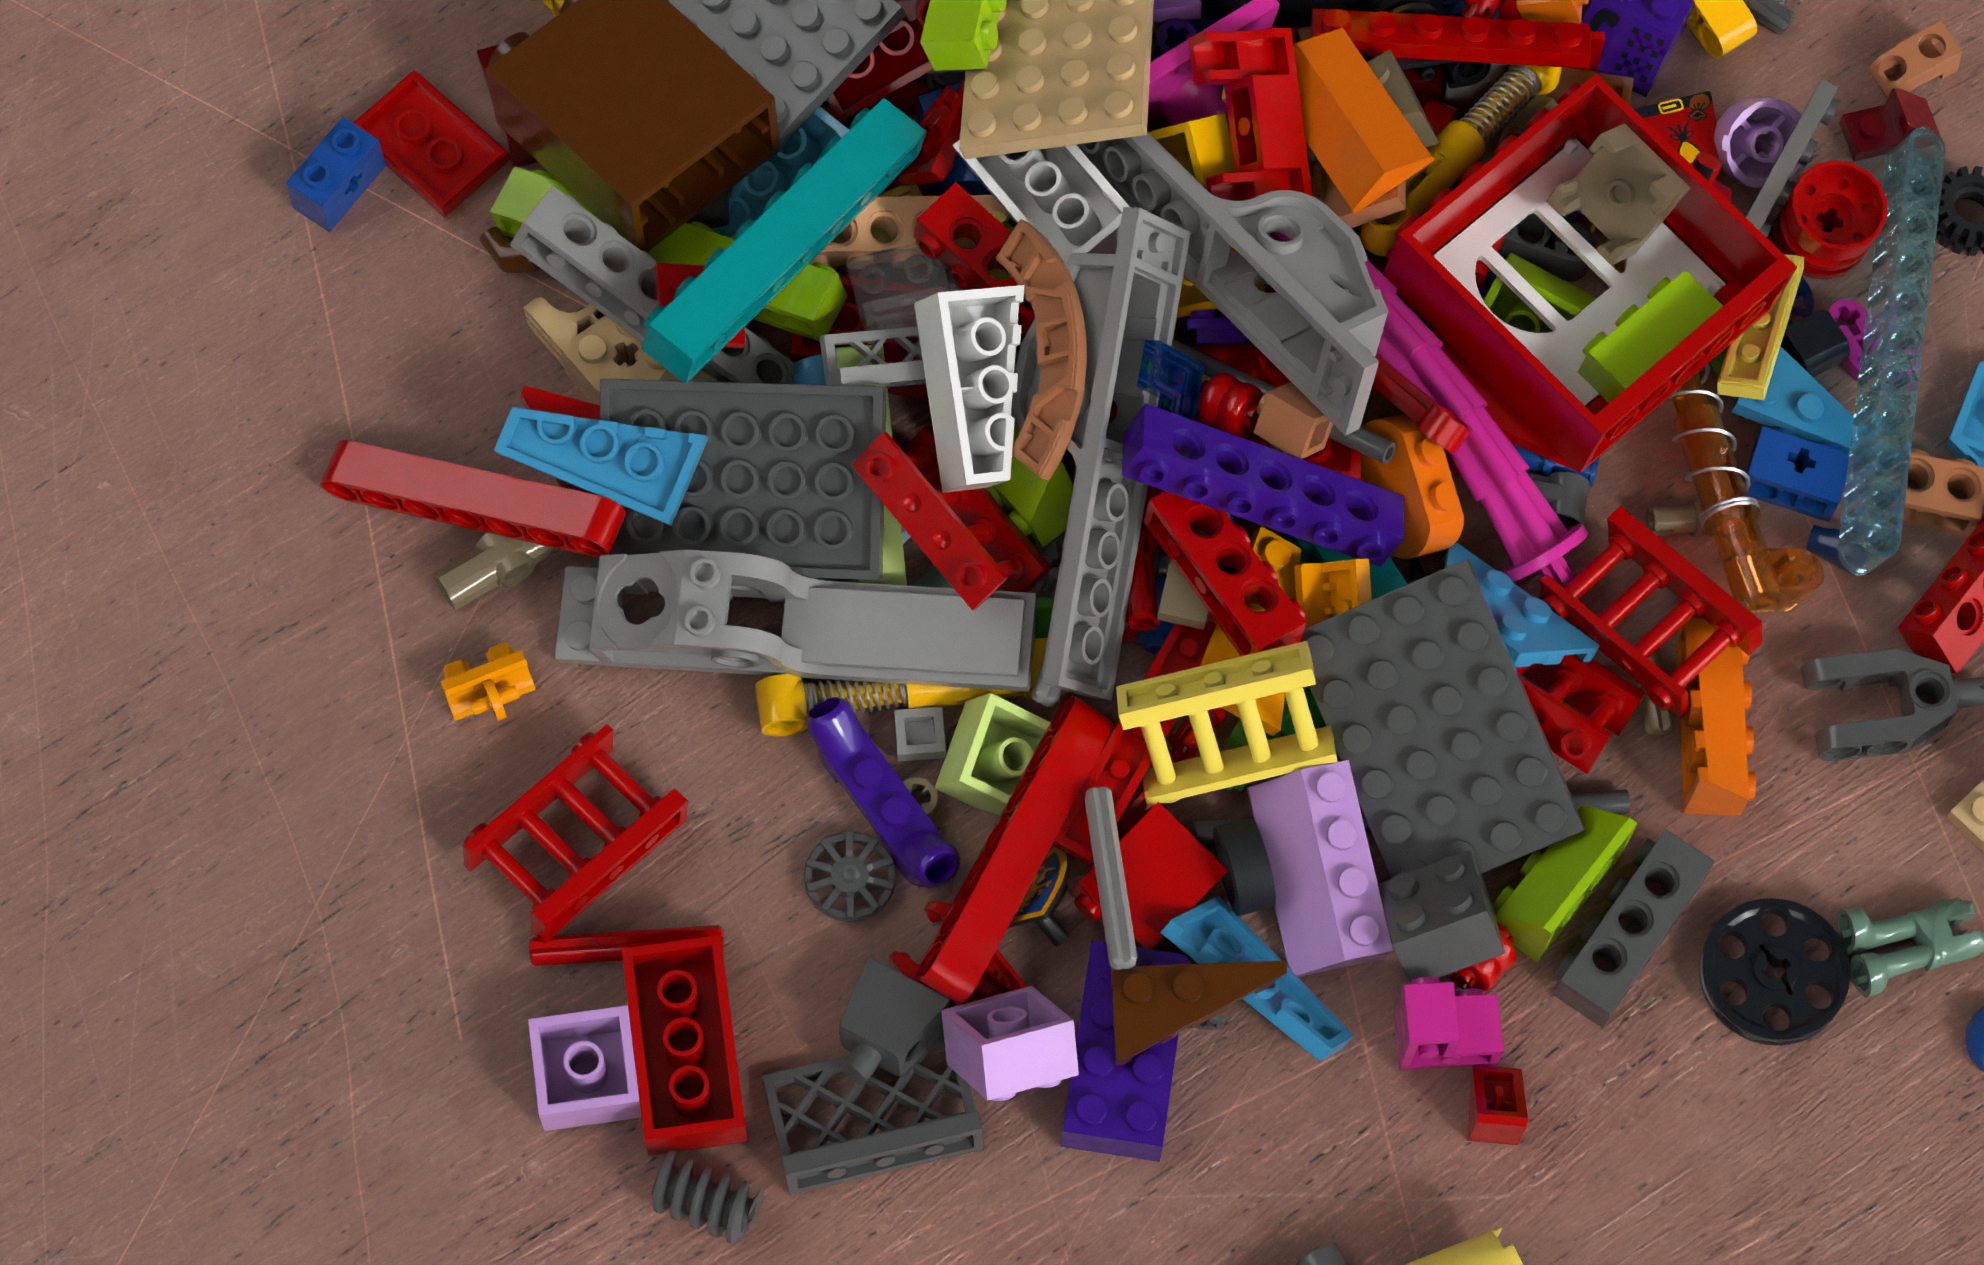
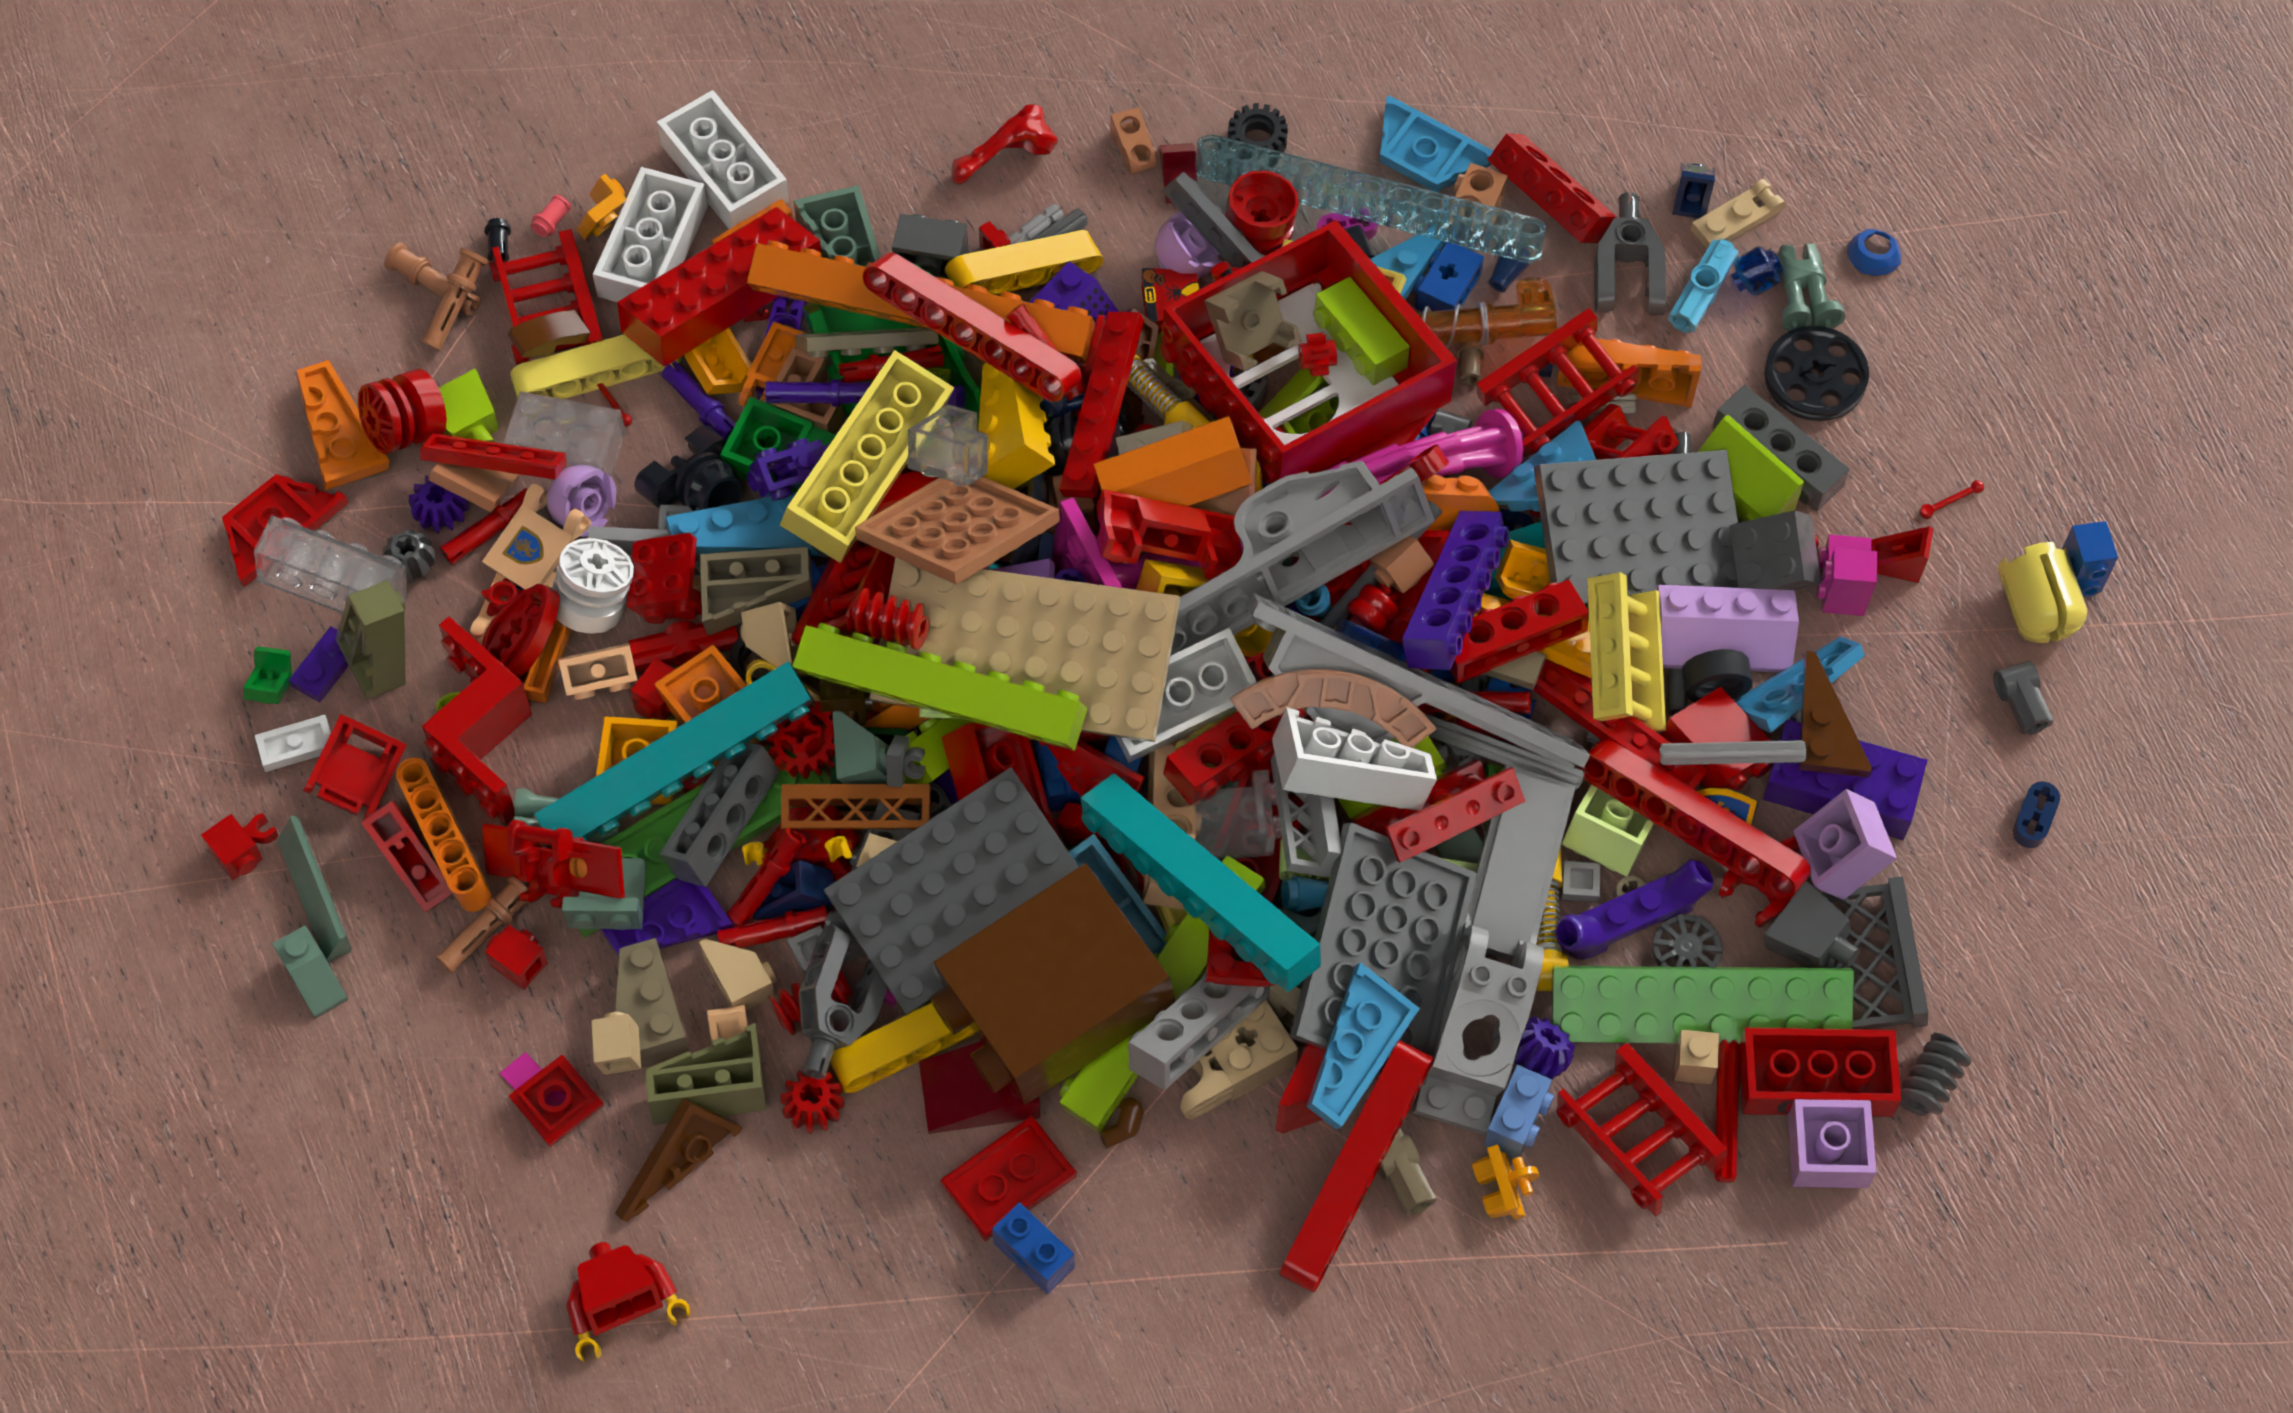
camera: 80 degrees left, 5 degrees down
(581, 687) = (1518, 1111): none -> medium blue brick
(672, 721) = (1544, 1048): none -> dark purple gear
(688, 894) = (1696, 1057): none -> tan brick
(760, 894) = (1659, 1002): none -> bright green plate
(1231, 343) = (1315, 603): none -> dark azure cone
(1585, 1144) = (1927, 510): none -> red hinge
(1596, 288) = (1317, 354): none -> red gear
(1905, 810) = (1697, 298): none -> medium azure piece
(1919, 871) = (1757, 270): none -> clear blue head

